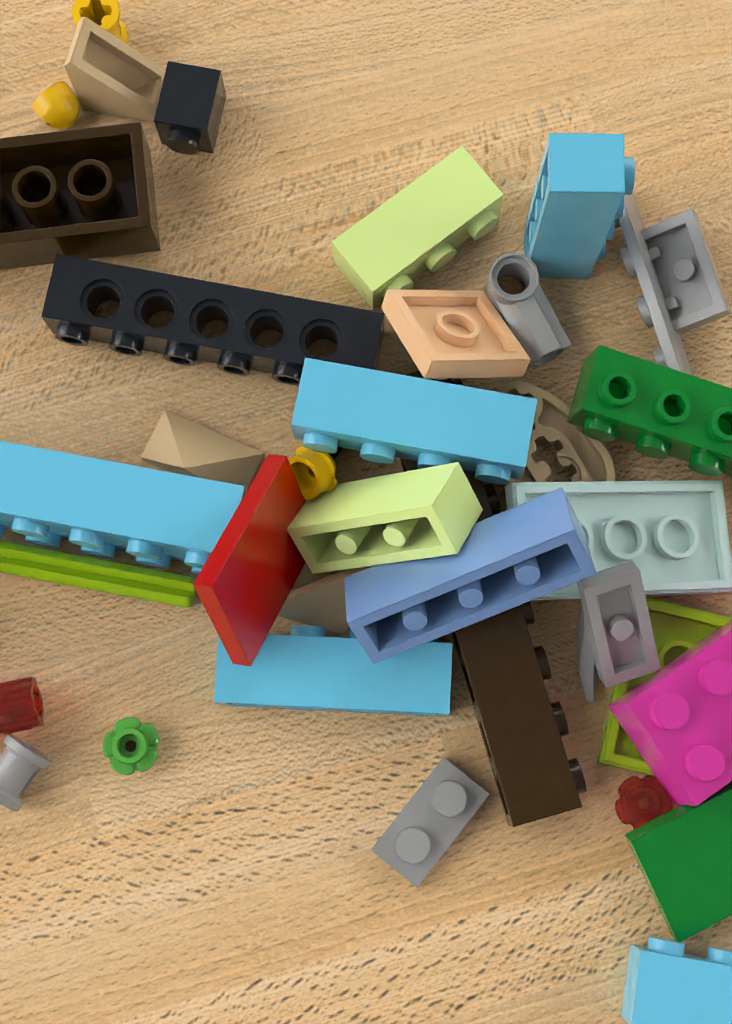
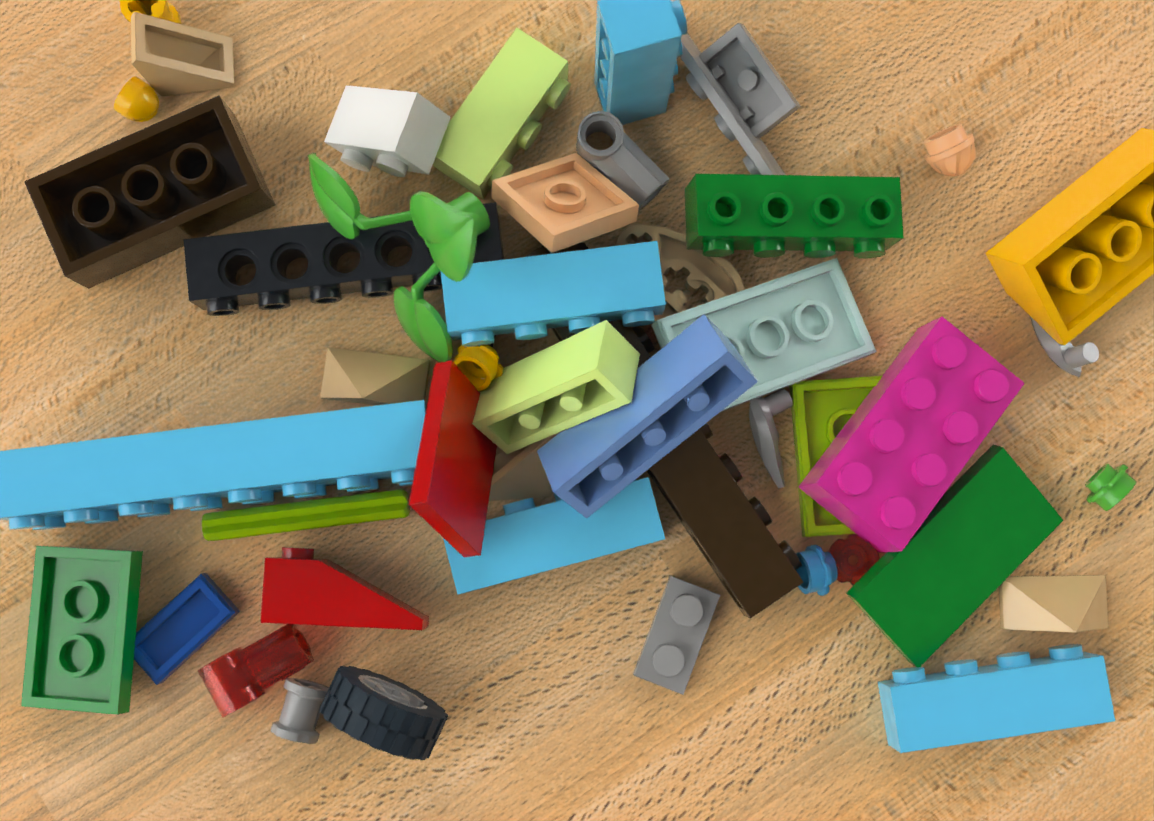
camera: 20 degrees left, 5 degrees up
(74, 656) = (325, 594): none -> red slope
(96, 800) = (383, 713): none -> black wheel
(146, 750) = (411, 656): bright green plate -> none
(190, 108) = (259, 66): black brick -> none
(297, 208) = (387, 130): none -> white brick
(322, 320) = (446, 228): none -> bright green plant
(600, 802) = (817, 570): none -> dark azure plate
(619, 624) = (787, 414): light grey plate -> none

